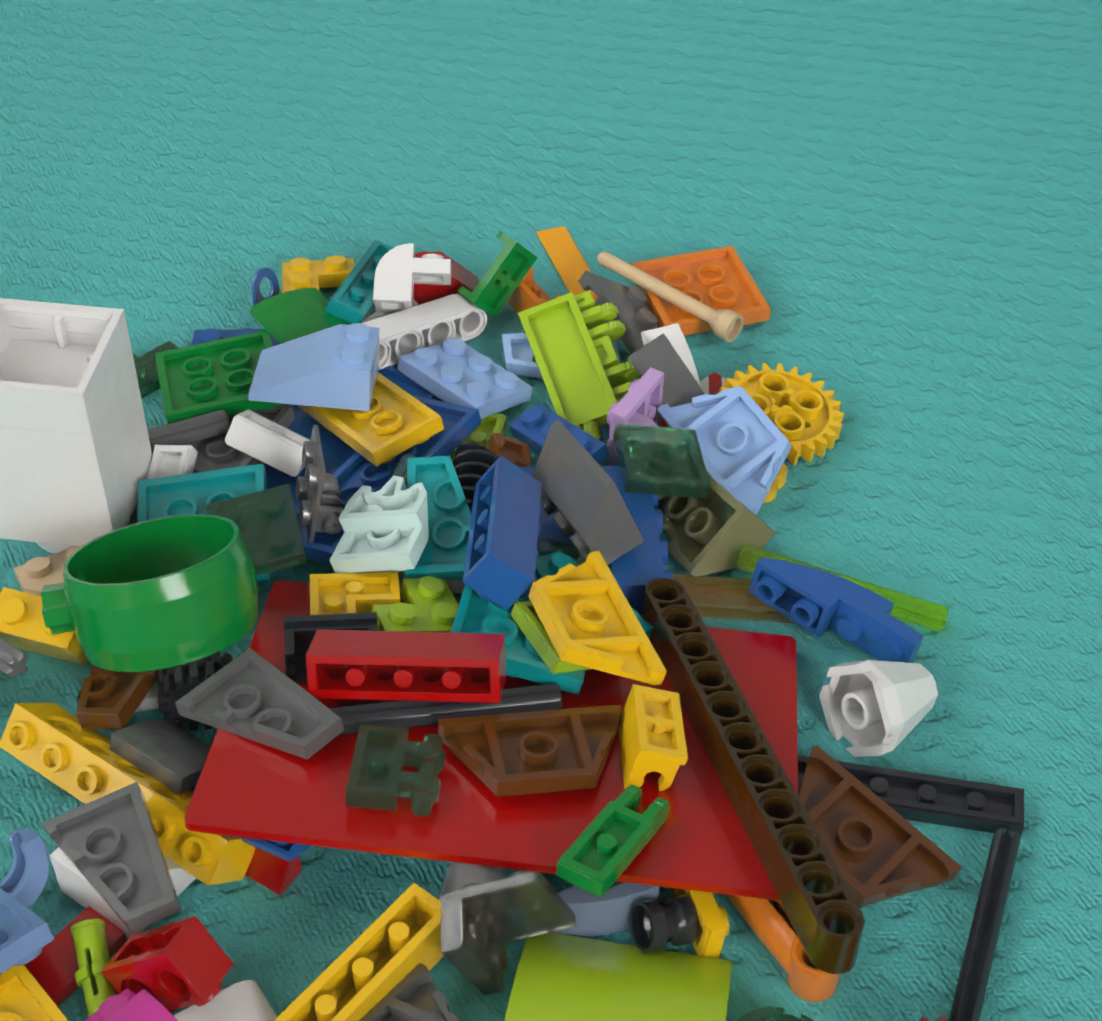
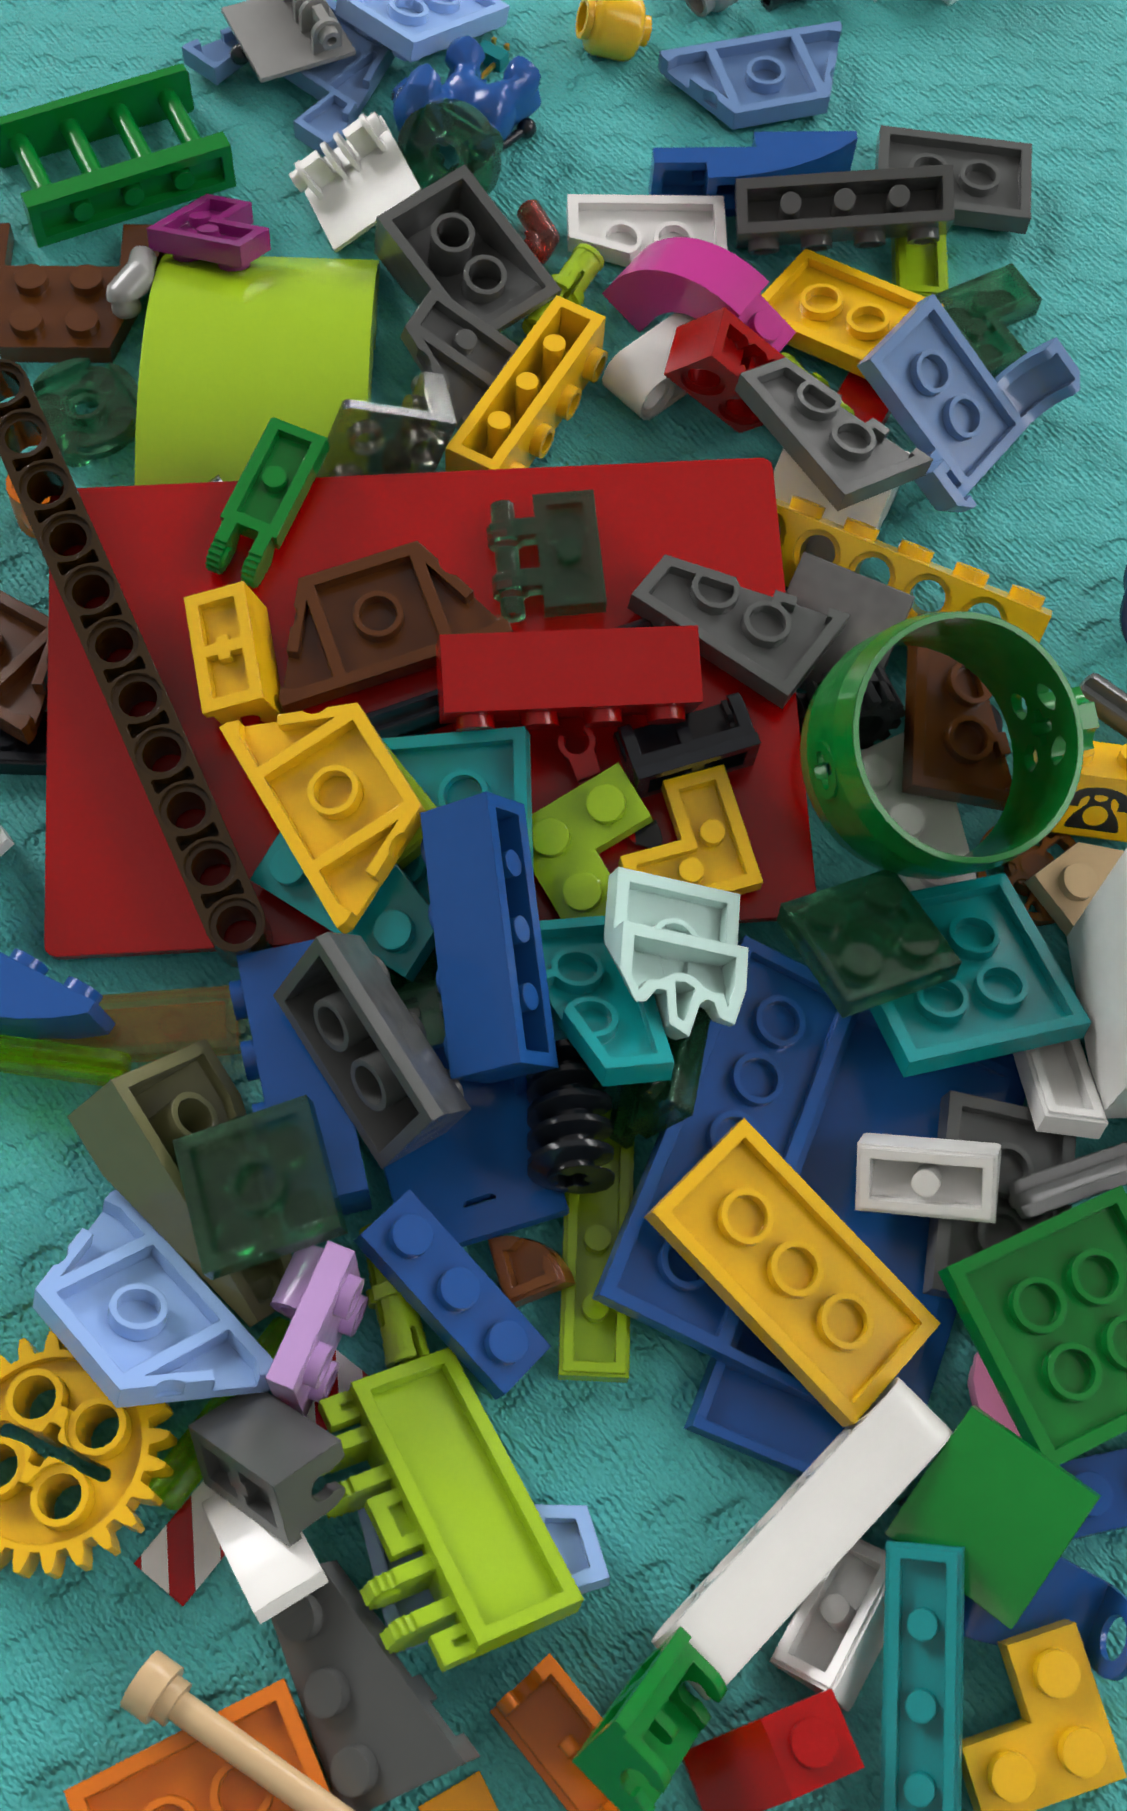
camera: 165 degrees right, 20 degrees up
(317, 492) = (798, 985): flat silver hinge -> none
(321, 369) = (903, 1298): light blue slope -> none
(400, 271) = (836, 1655): white brick -> none
(464, 377) = (655, 1453): light blue plate -> none

